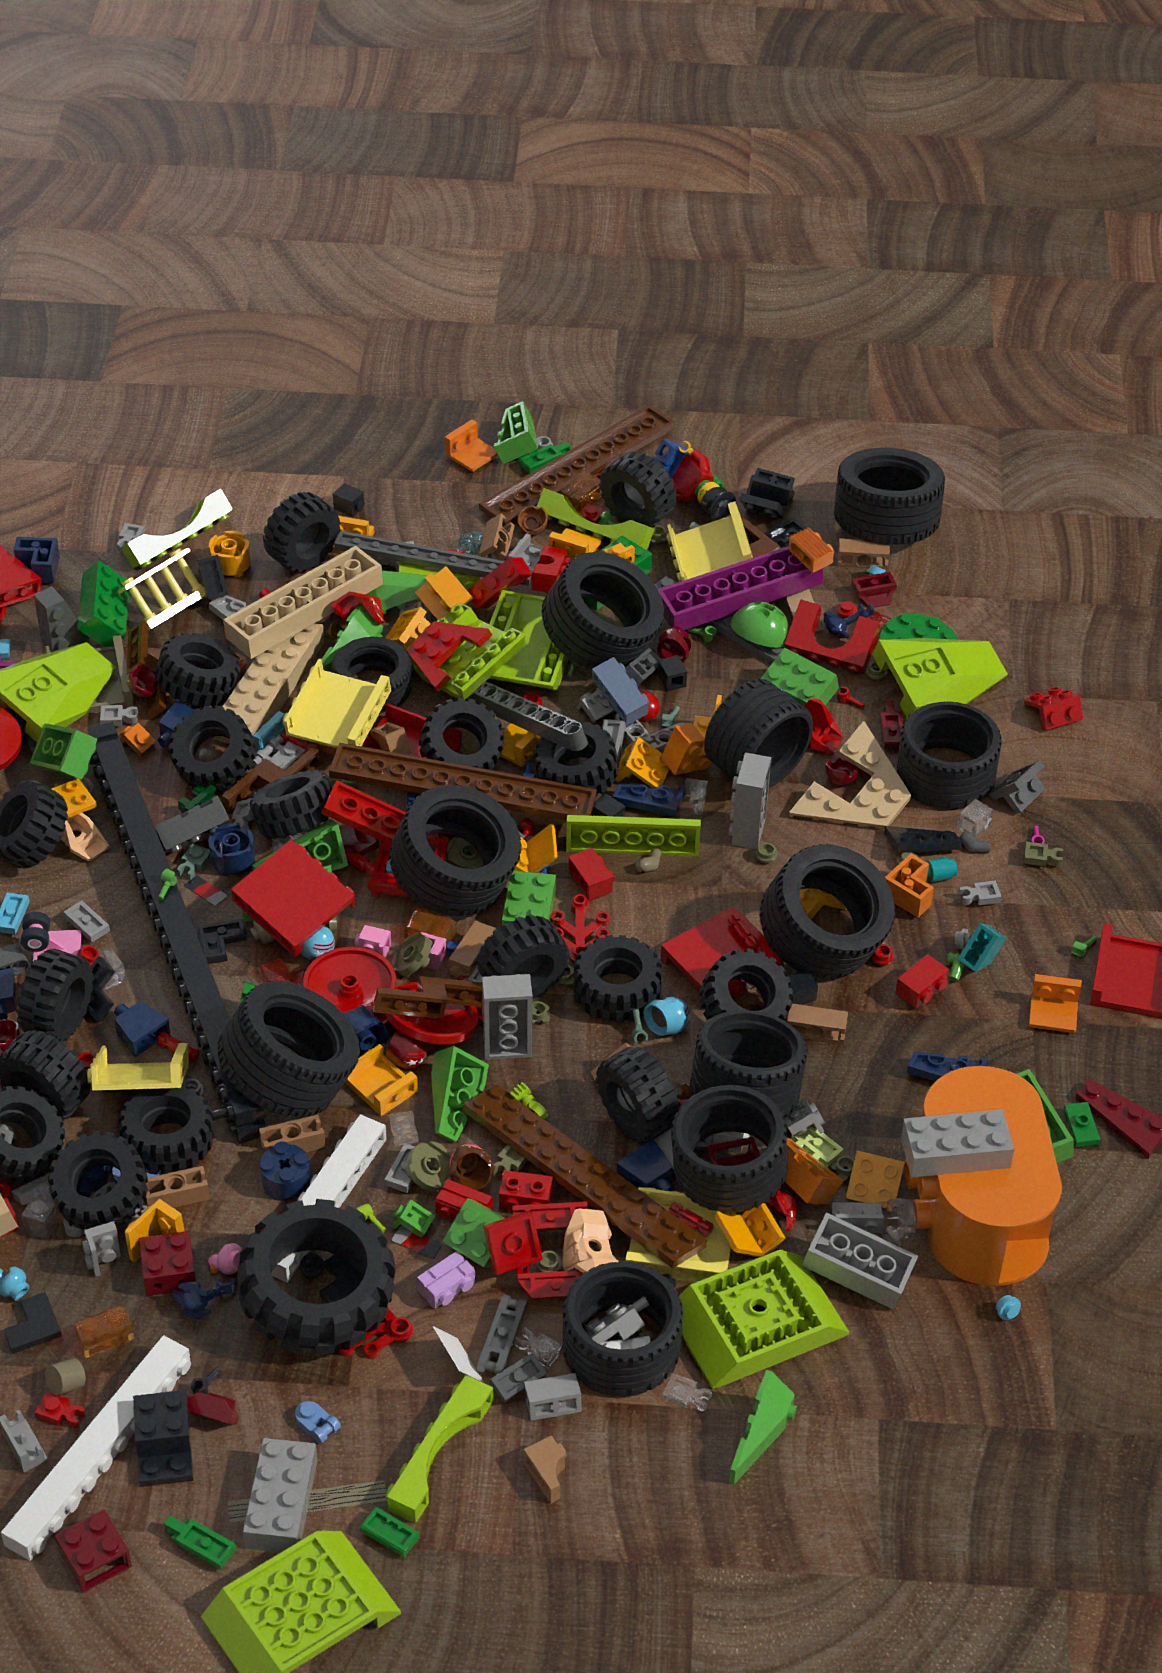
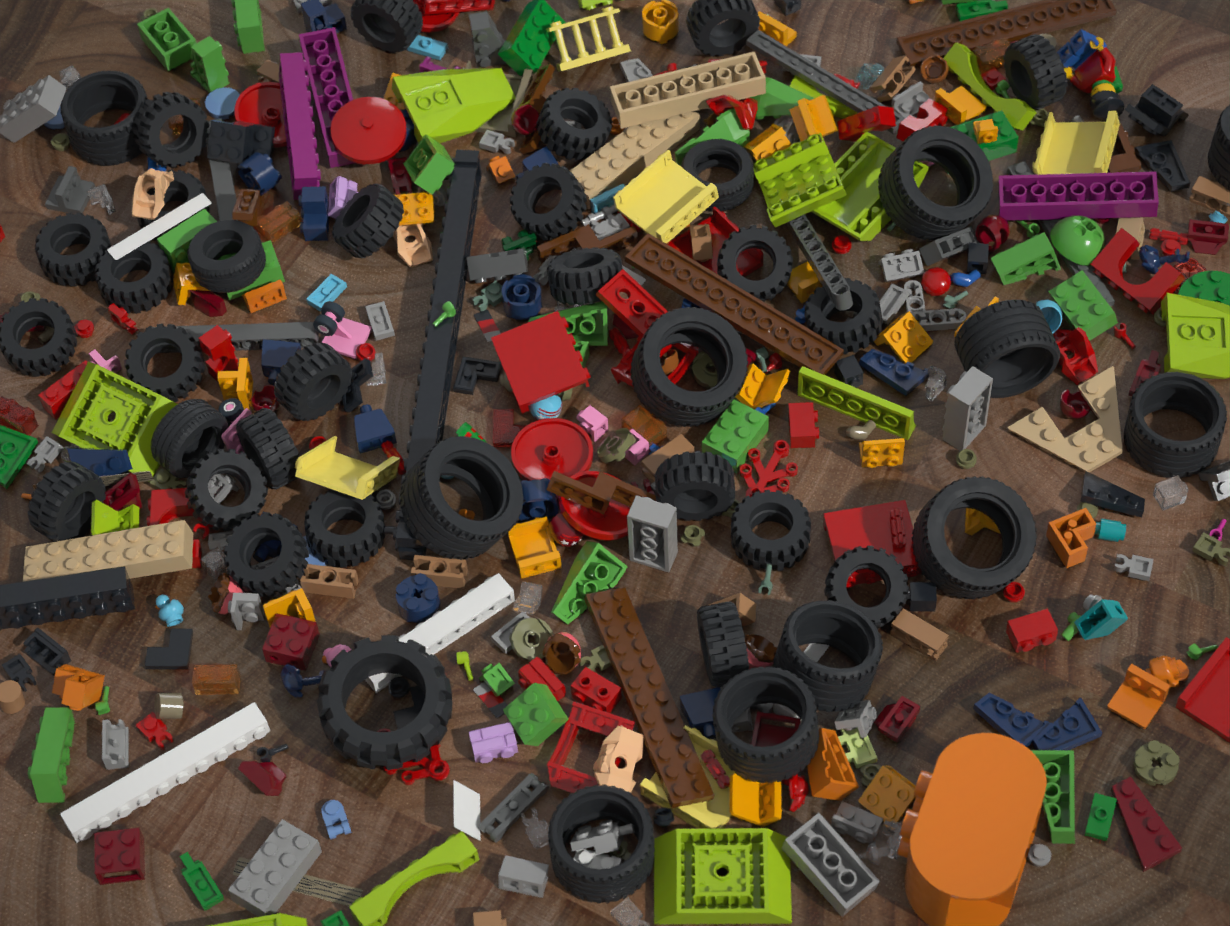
camera: 30 degrees right, 10 degrees up
(24, 771) = (400, 177): none -> dark red hinge
(65, 1242) = (223, 592): none -> reddish brown hair
(163, 1438) = (212, 786): black bracket -> none
(211, 576) = (630, 39): black bracket -> none
(438, 643) = (778, 168): red wing -> none
(511, 1380) = (513, 846): dark grey plate -> none
(513, 1242) = (553, 734): red tile -> none
(524, 1095) = (640, 605): lime piece -> none
(550, 1263) = (583, 760): olive plate -> none
(620, 690) = (917, 262): sand blue brick -> none
(669, 696) = (965, 279): none -> blue arm
(674, 1012) = (800, 580): medium azure helmet -> none
(683, 872) = (882, 452): none -> light orange bracket
(685, 750) = (940, 337): orange brick -> none
(720, 658) = (1025, 259): none -> bright green wedge
(811, 550) = (1153, 183): orange brick -> none
(834, 600) = (1166, 234): none -> red axle
(840, 1106) = (897, 718): none -> dark red slope
(957, 1143) = (943, 802): light grey brick -> none
(972, 844) = (1154, 515): dark grey arm -> none
(1012, 1051) = (1070, 730): none -> dark blue wing
(1067, 968) = (1168, 670): none -> orange head
(1100, 1047) = (1156, 751): none -> olive plate

